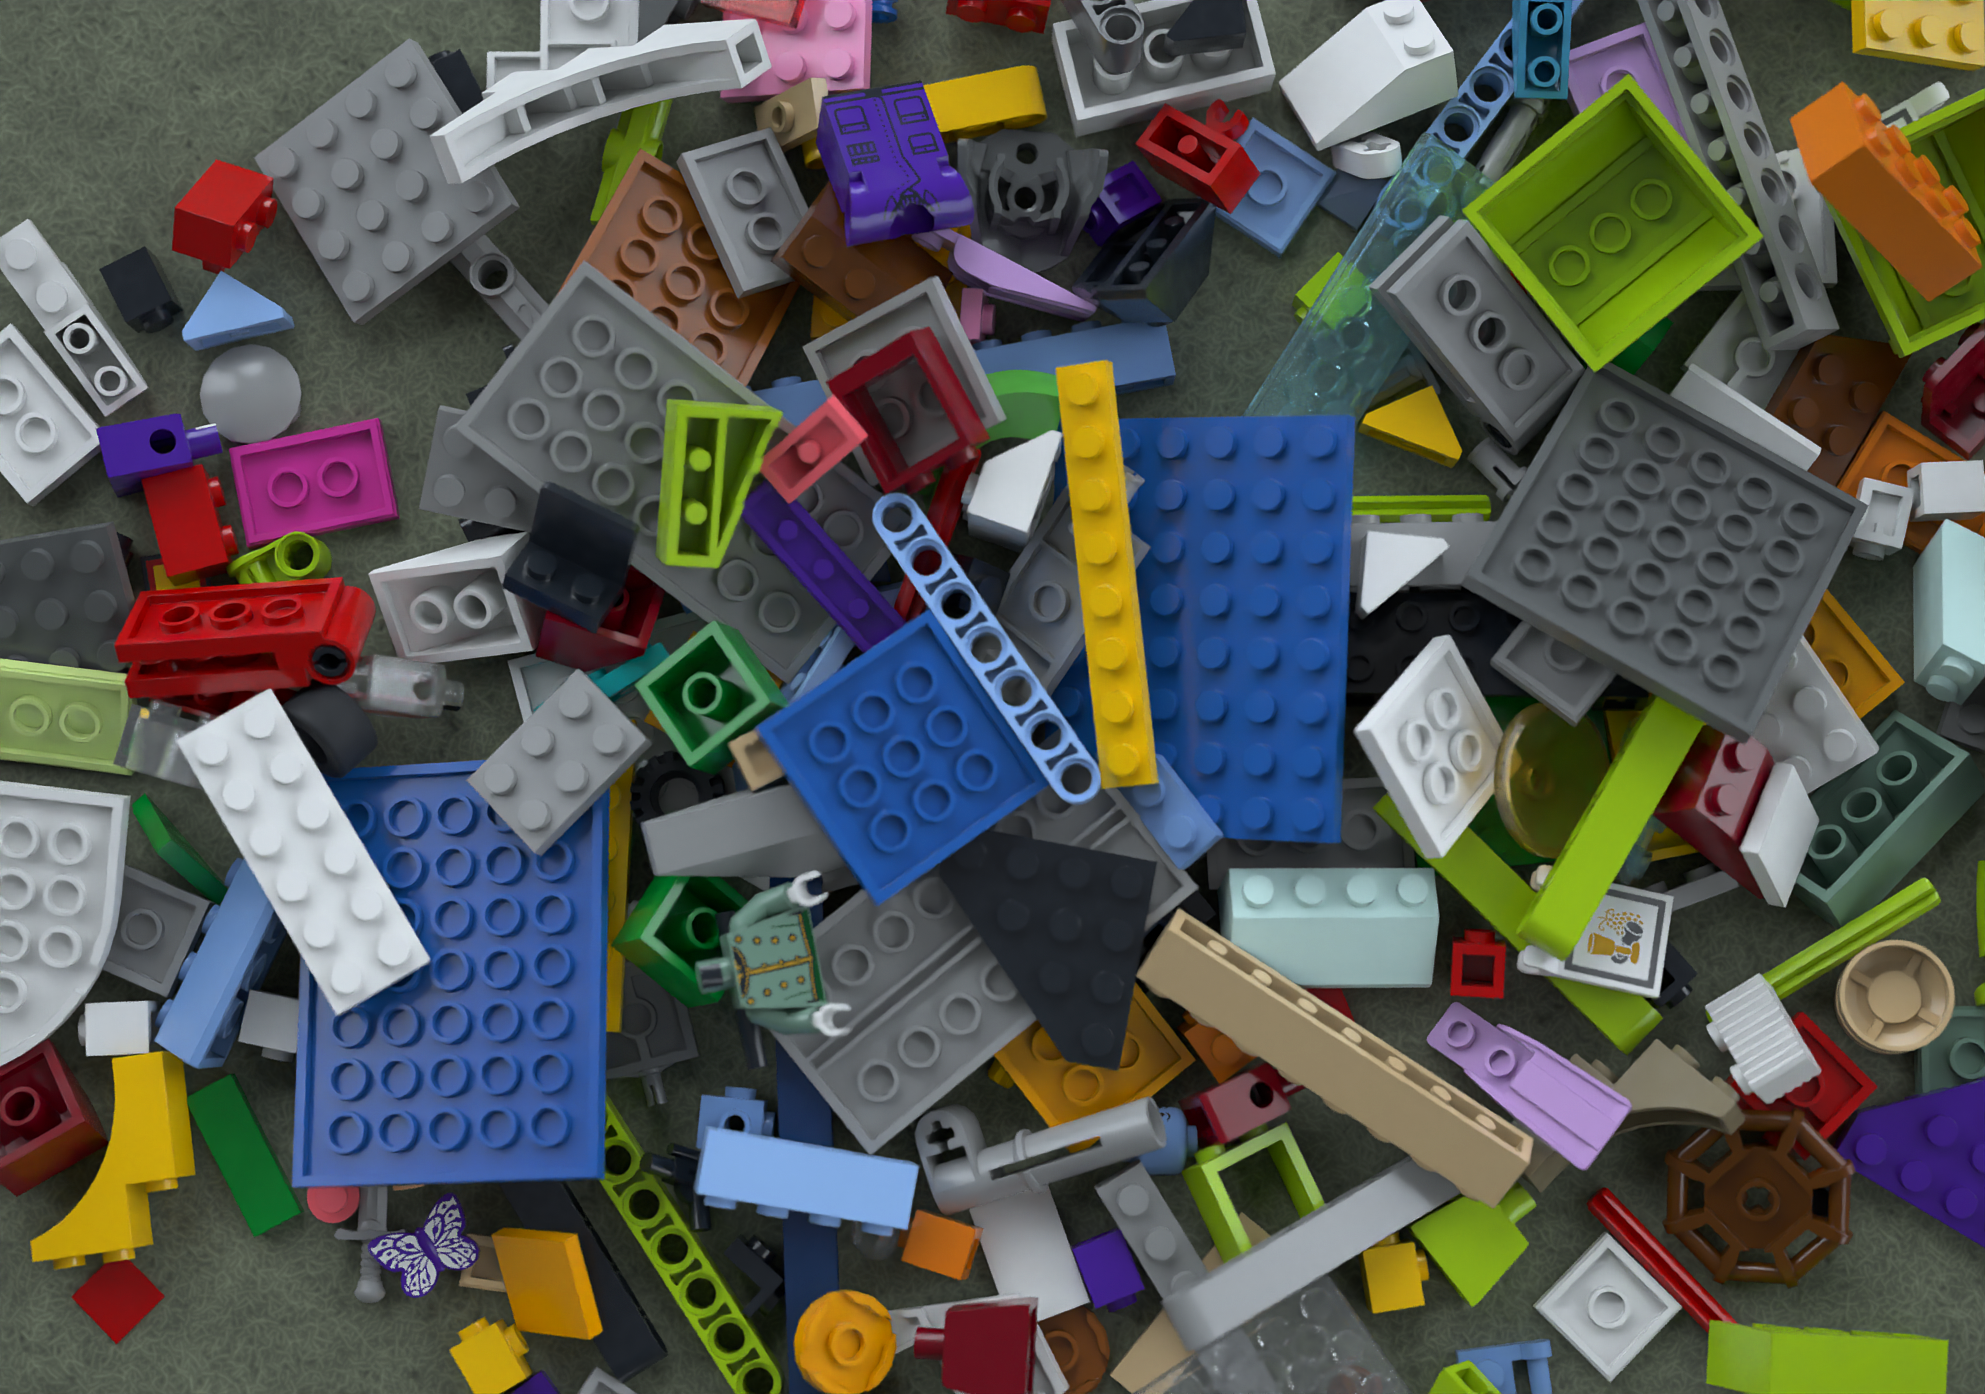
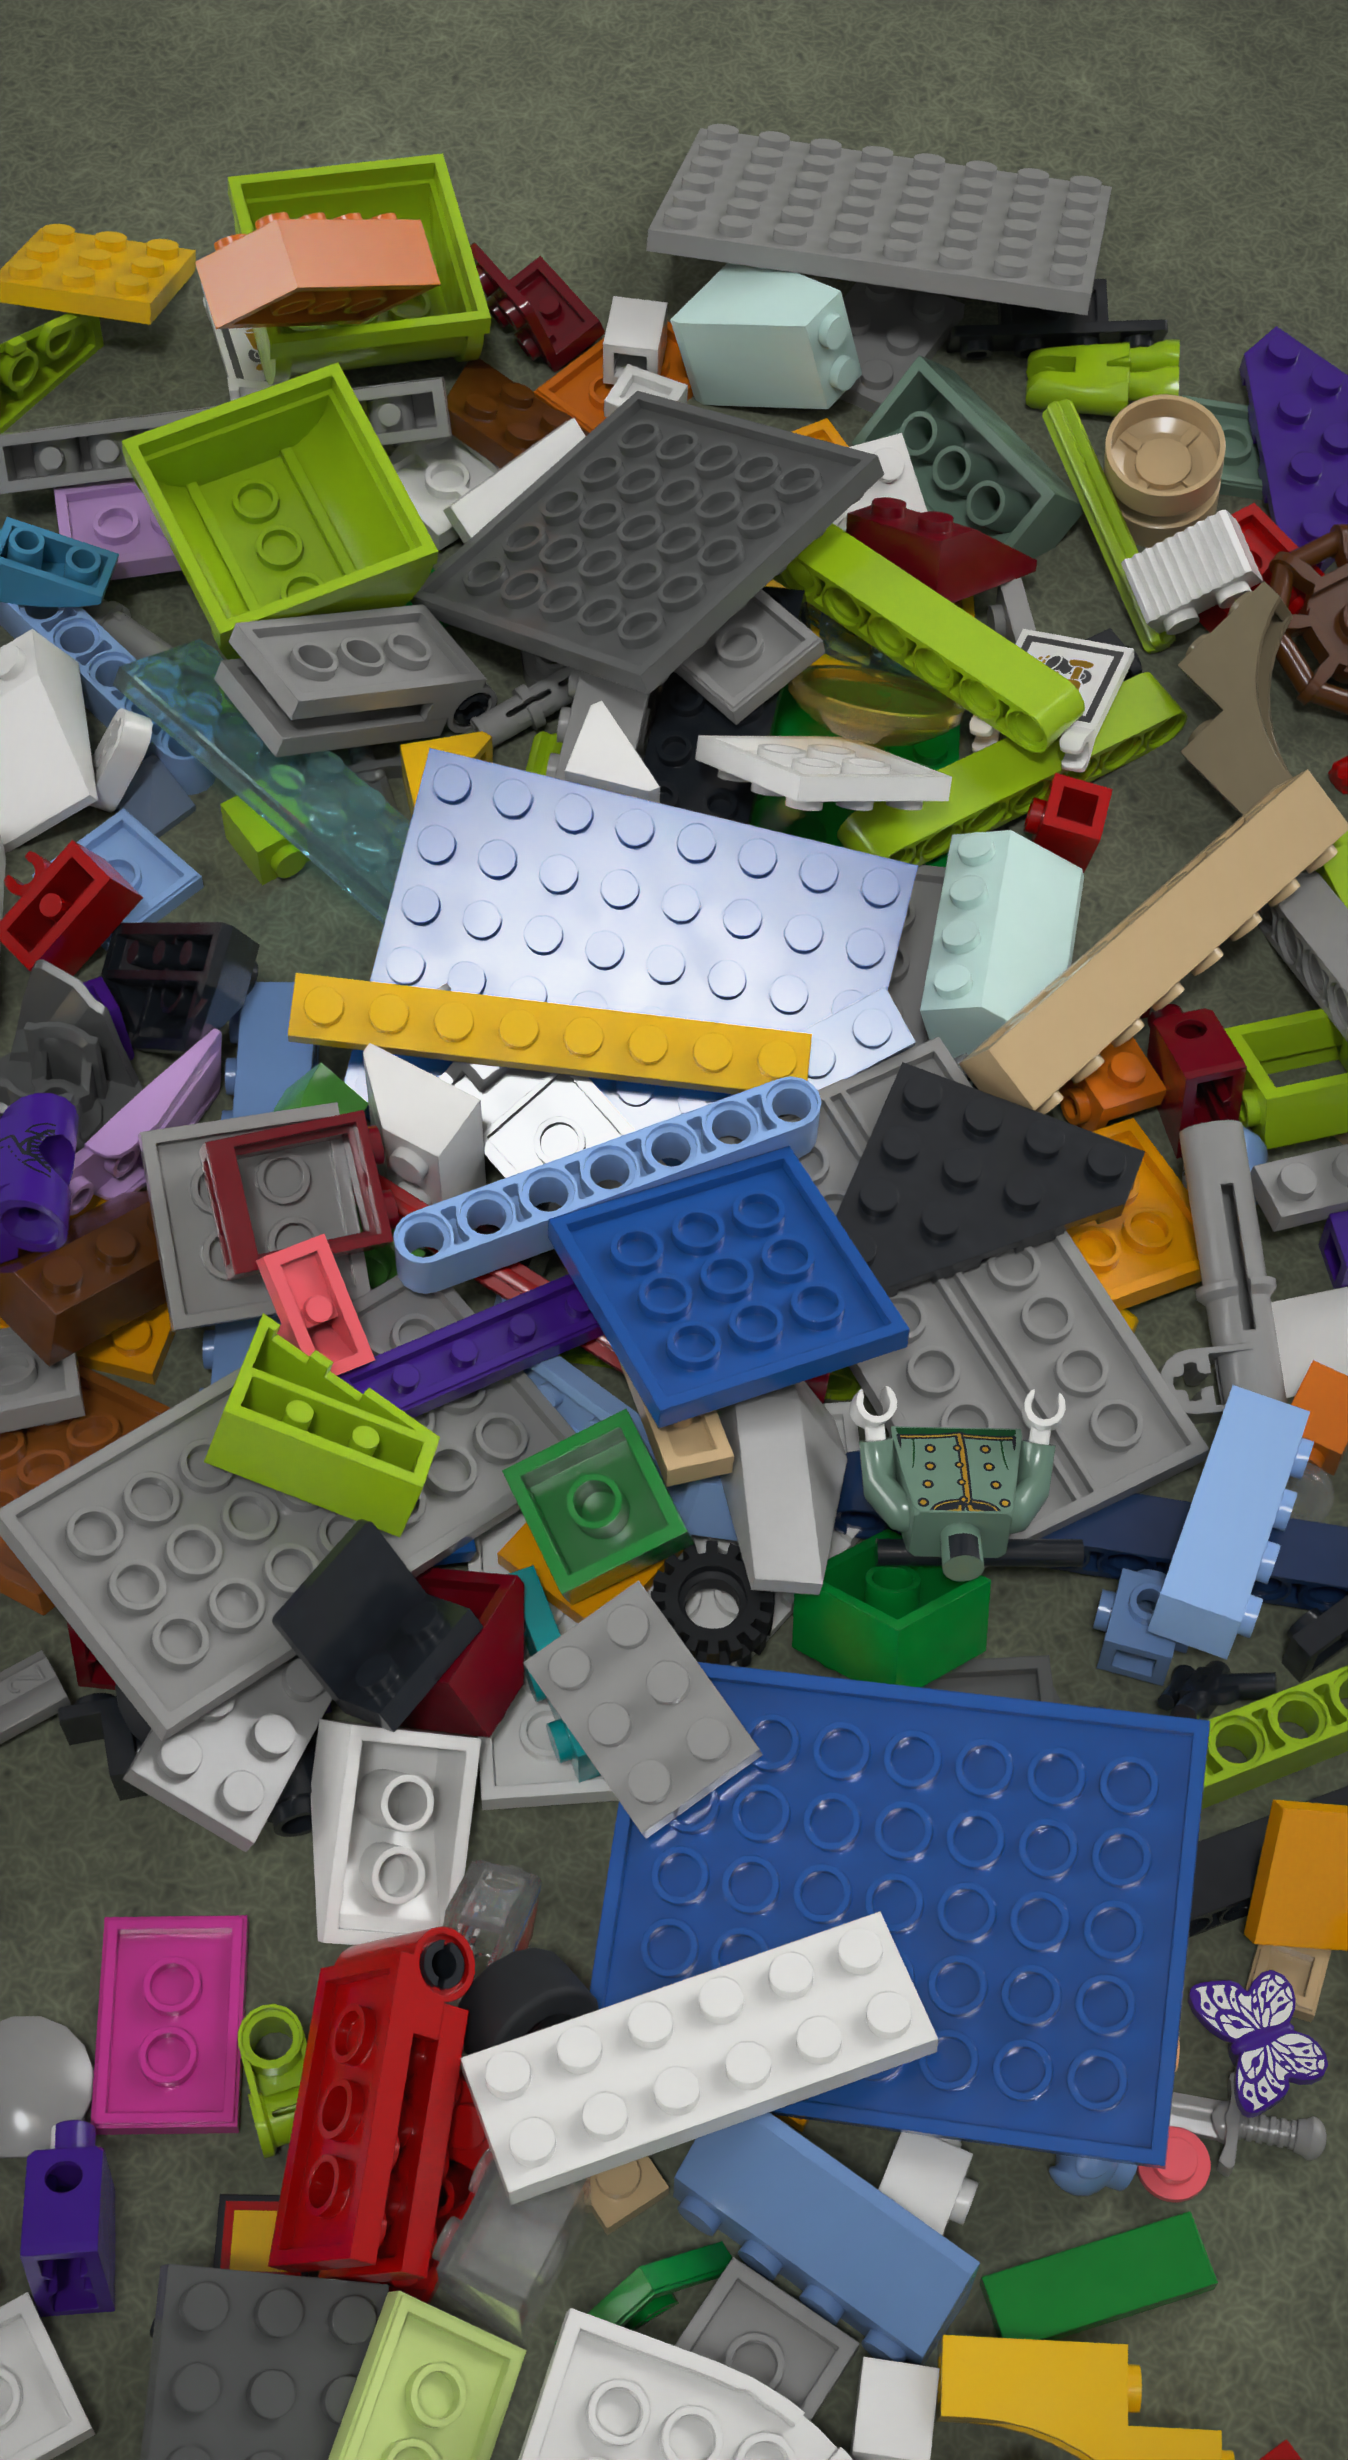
camera: 80 degrees left, 25 degrees down
(189, 524) = (185, 2194): red brick -> none
(1532, 1084) = (1207, 791): lavender piece -> none
(1779, 834) = (978, 516): white tile -> none

